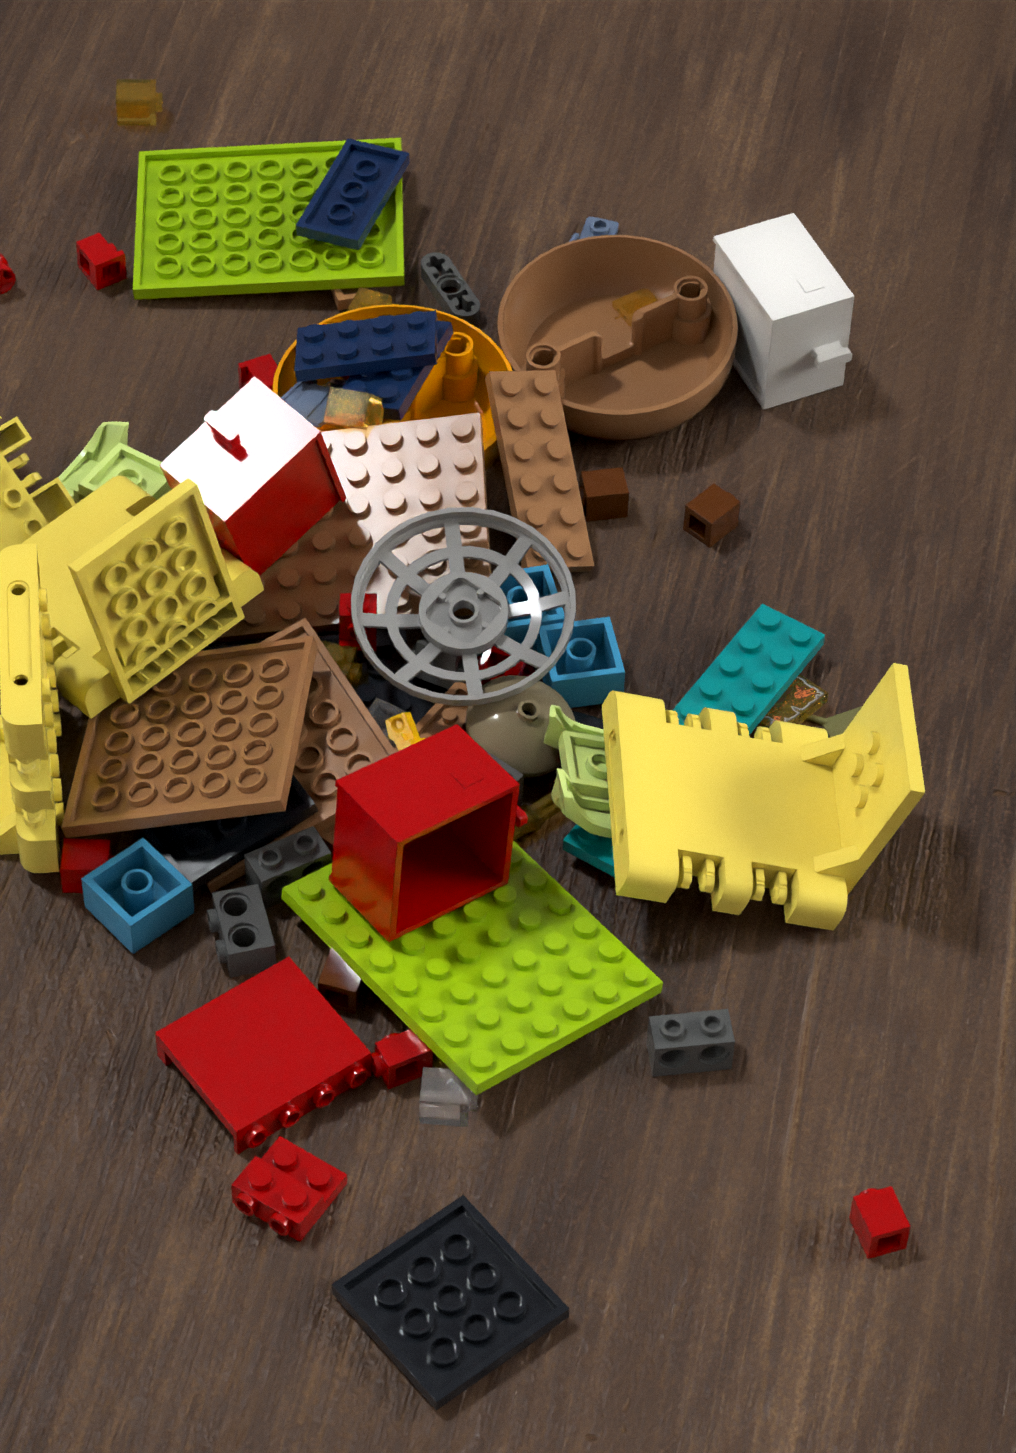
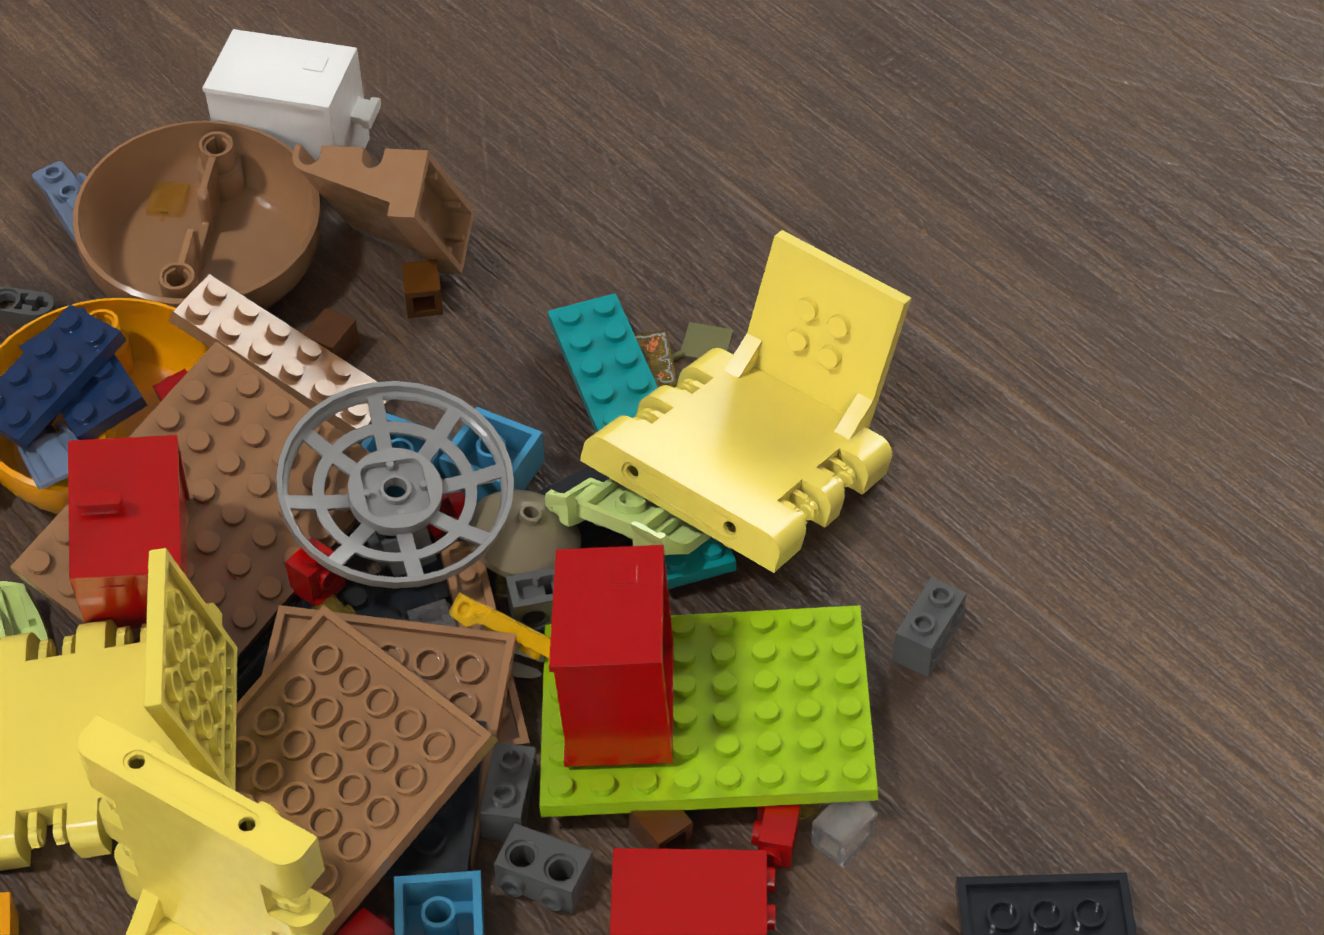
camera: 50 degrees left, 0 degrees up
(352, 409) = (112, 421): clear yellow brick -> none
(747, 436) = (400, 200): none -> medium nougat panel
(879, 1222) = (1192, 615): red brick -> none

